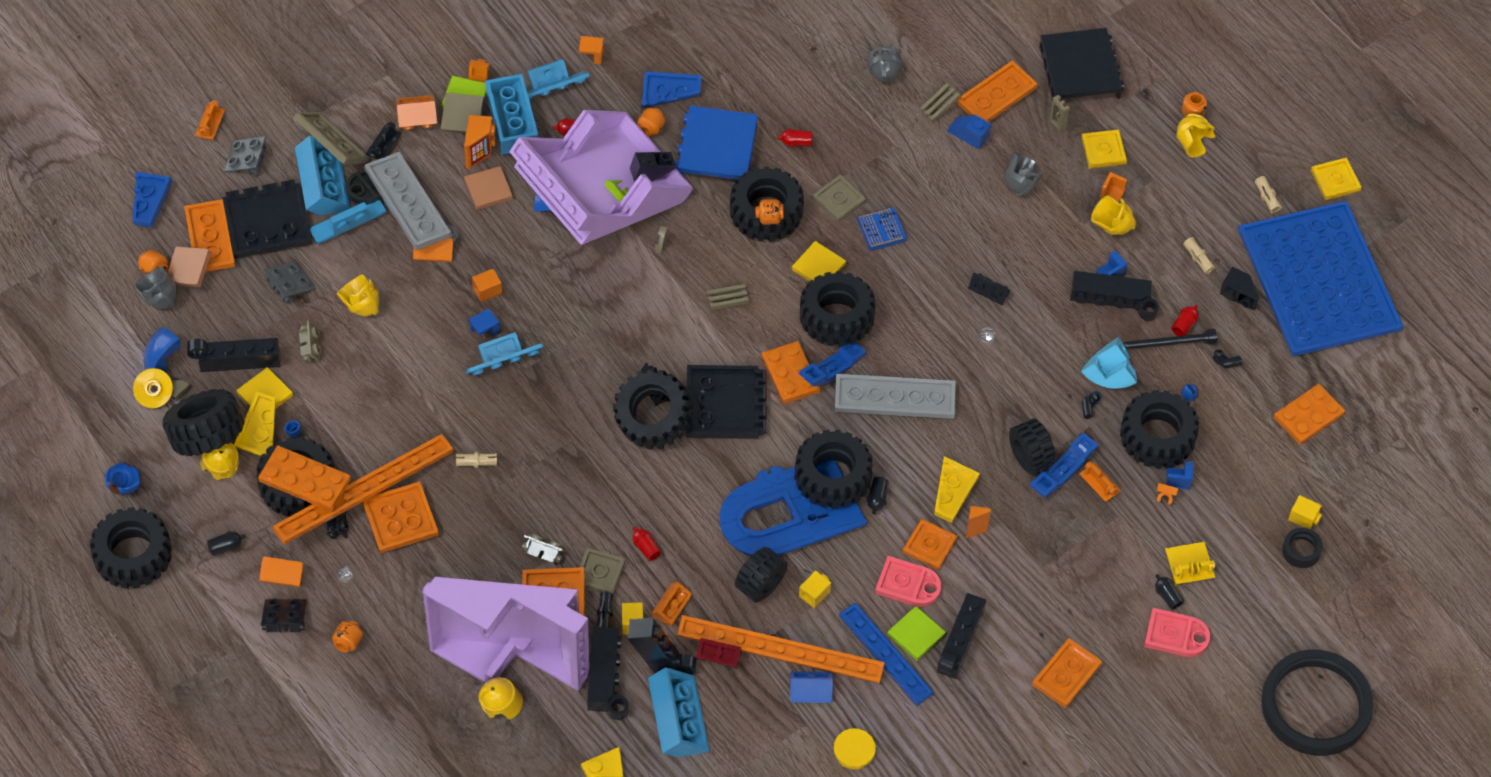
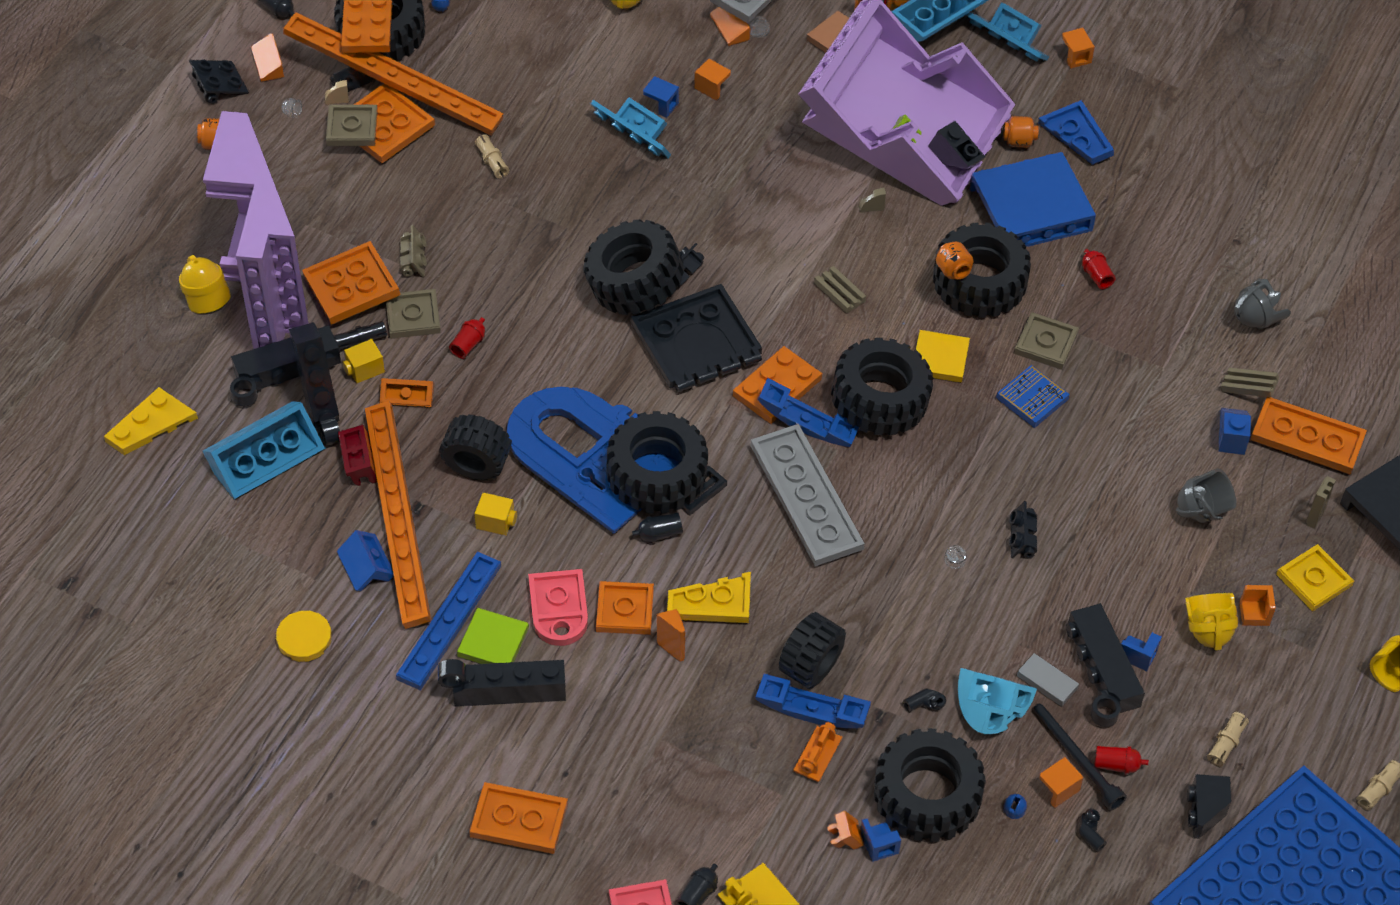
camera: 65 degrees right, 5 degrees down
(353, 534) = (337, 94): none -> tan tile
(396, 538) = (351, 125): none -> dark tan tile
(1107, 330) = (1047, 679): none -> light grey tile
(1188, 356) = (1062, 781): none -> orange panel

